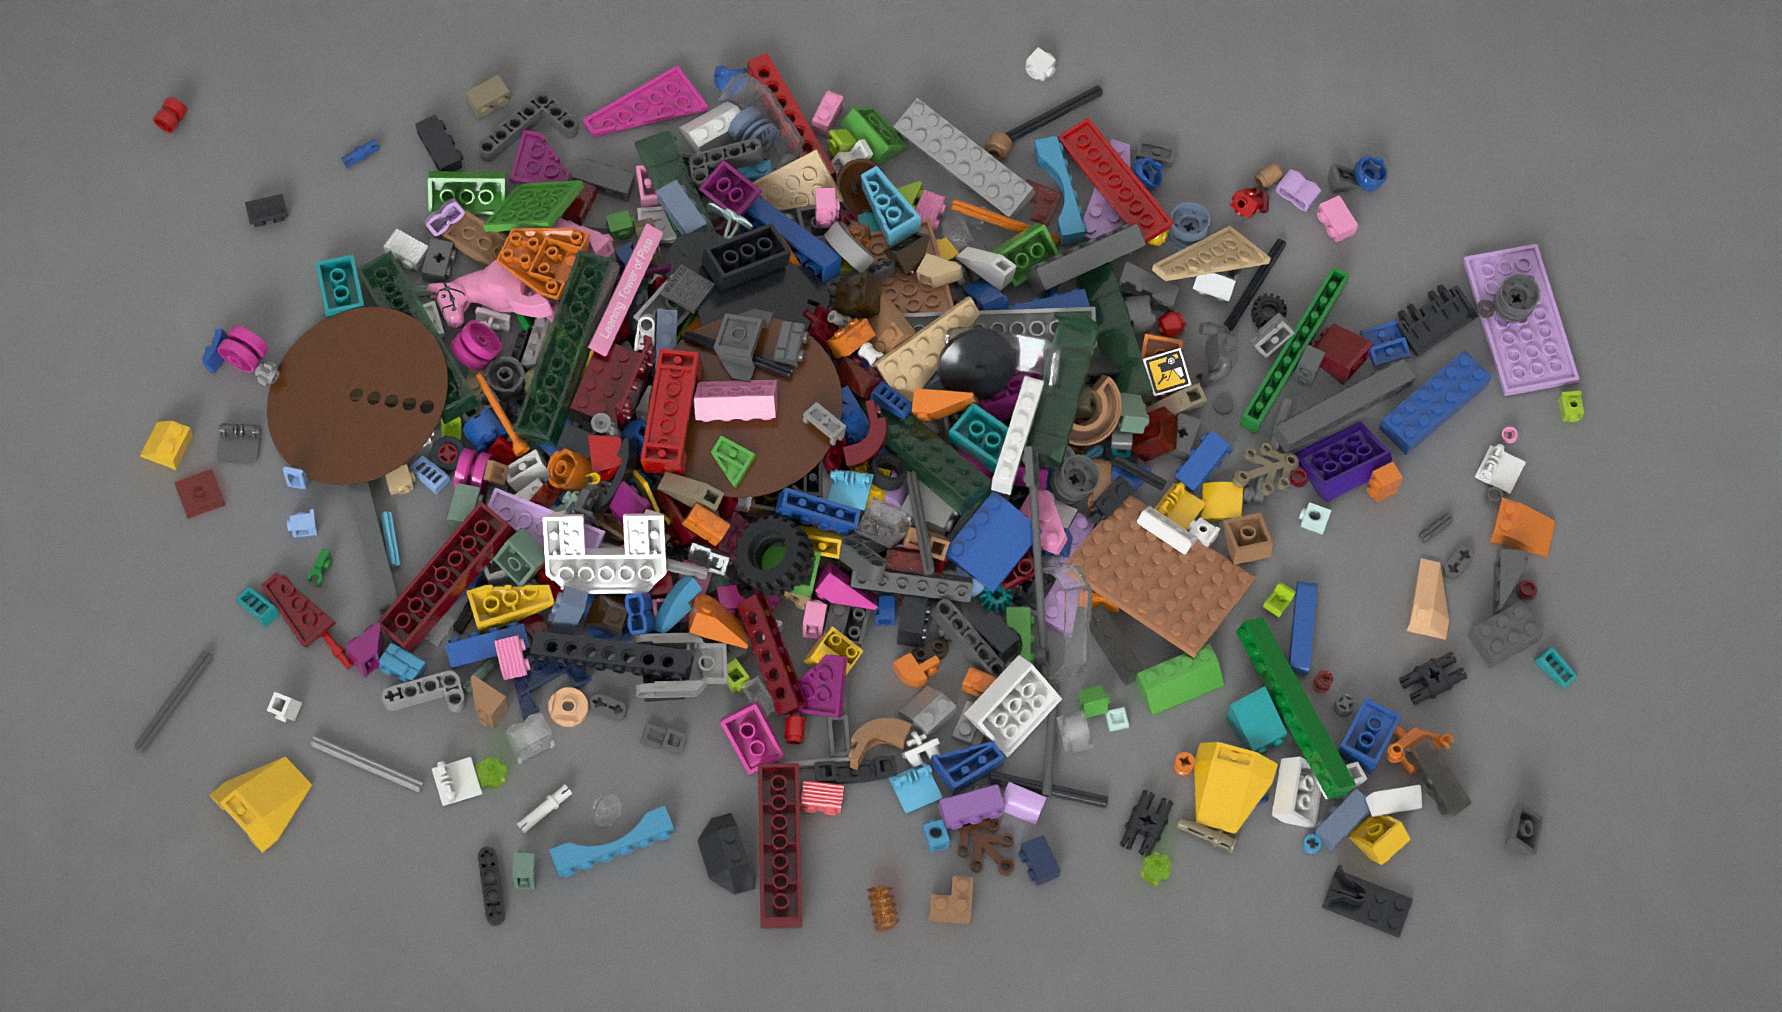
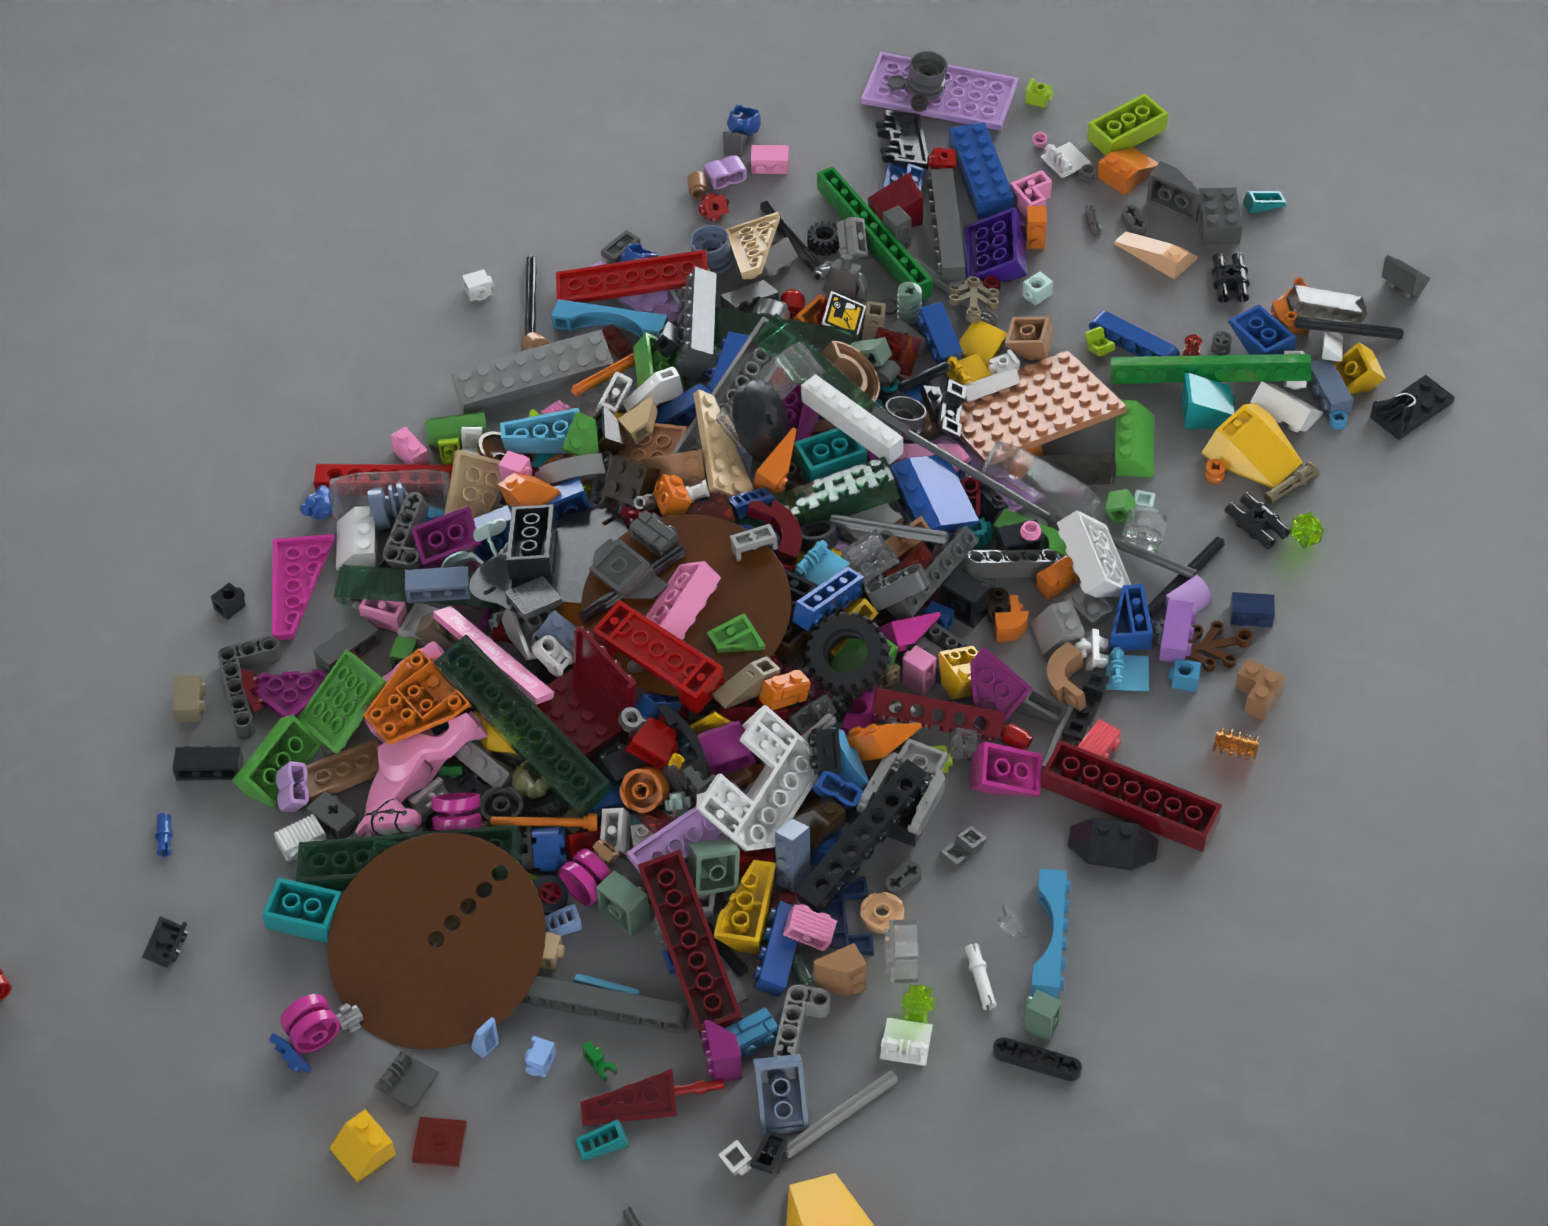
camera: 55 degrees left, 15 degrees down
(298, 729) = (770, 1152): none -> black slope
(355, 710) = (781, 1094): none -> sand blue slope
(520, 130) = (250, 685): none -> dark red slope
(596, 62) = (228, 600): none -> black brick
(665, 584) = (825, 750): none -> black bracket
(804, 226) = (527, 490): none -> orange slope
(886, 236) = (581, 436): none -> bright green wing
(961, 236) = (615, 393): none -> white brick
(998, 638) = (1030, 530): none -> bright pink plate
(1049, 245) = (667, 339): none -> black brick
(1105, 512) = (950, 408): none -> black slope
(1224, 418) = (909, 302): none -> sand green piece
(1422, 807) = (1348, 328): none -> black axle
(1423, 370) = (942, 159): none -> red brick
(1428, 456) = (1031, 191): none -> bright pink brick
(1501, 274) = (897, 82): none -> dark grey piece
(1572, 503) = (1127, 125): none -> lime brick

